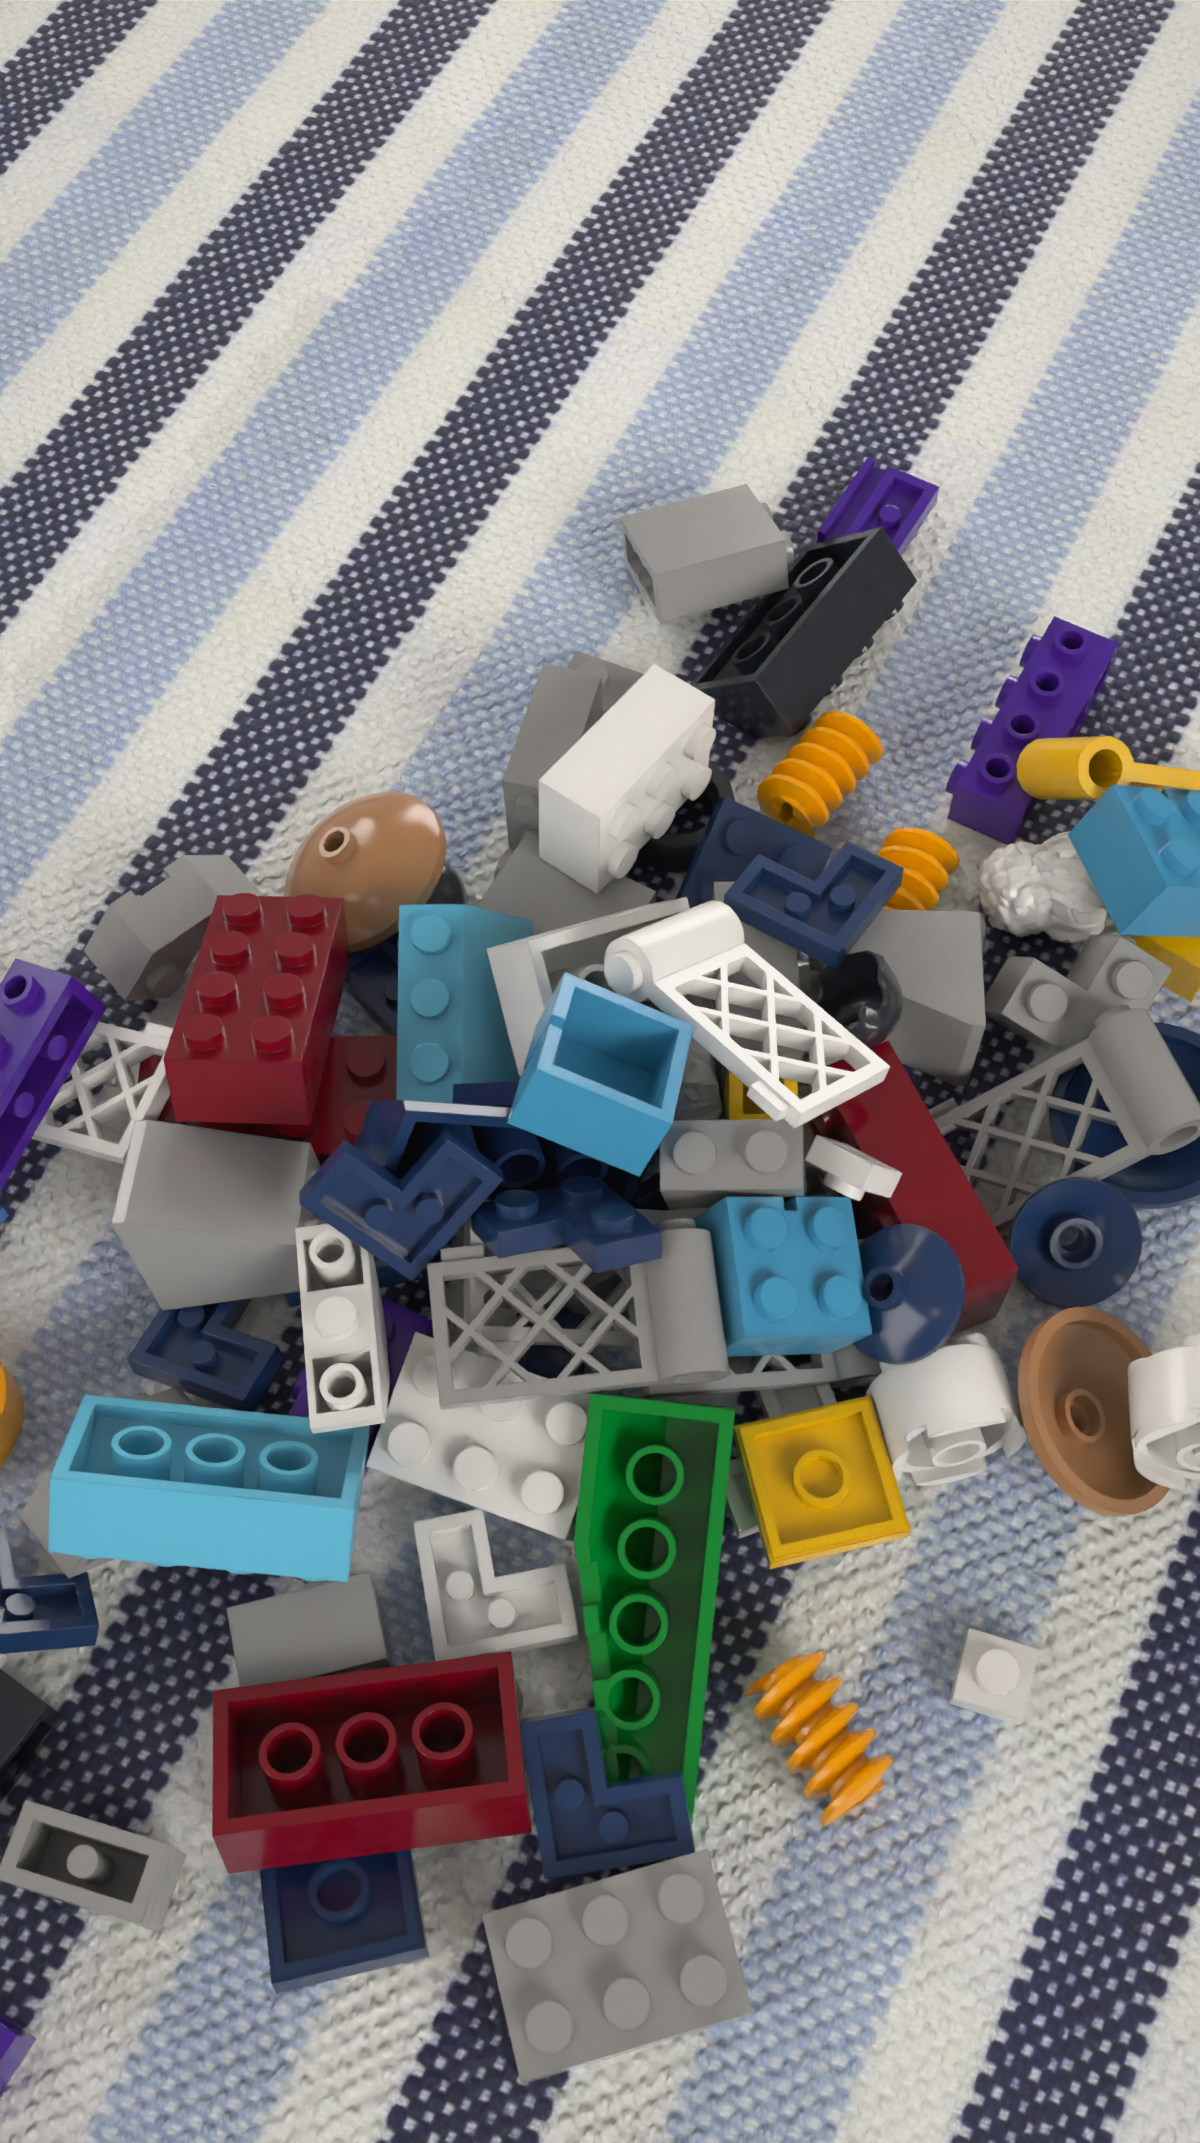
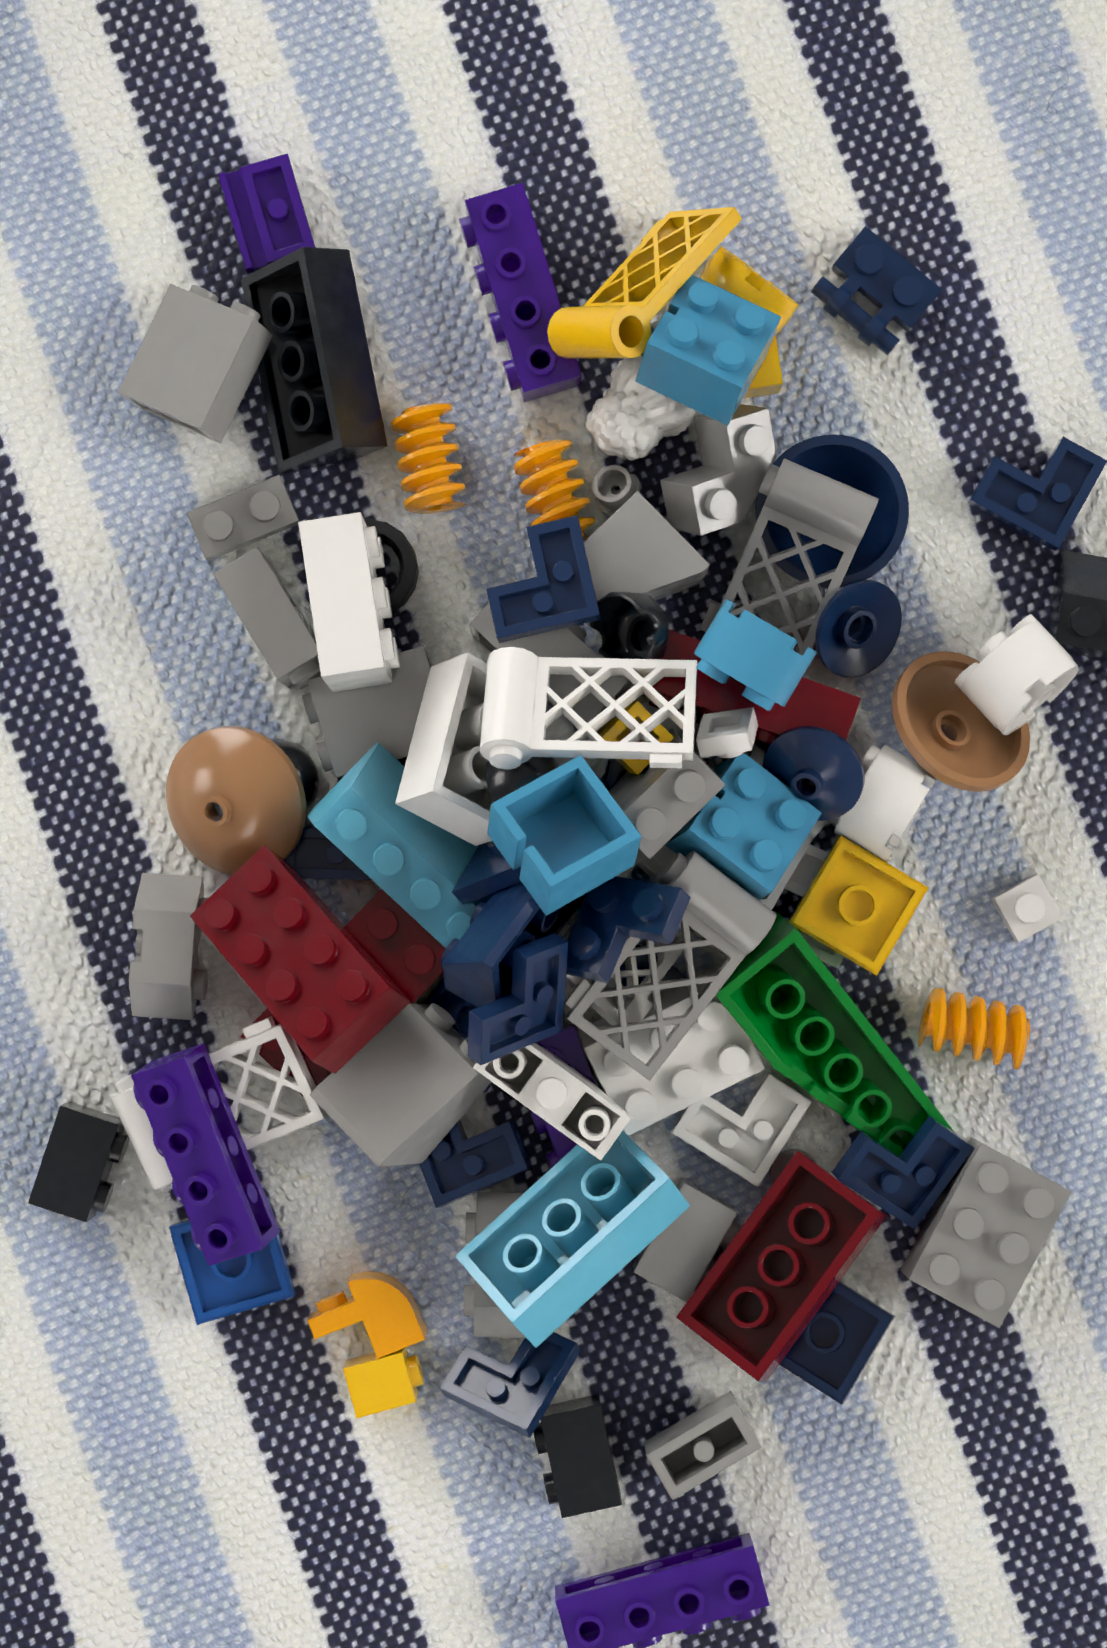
camera: 50 degrees left, 25 degrees up
(735, 839) = (439, 567): dark blue plate -> none
(949, 1110) = (752, 655): none -> dark azure brick

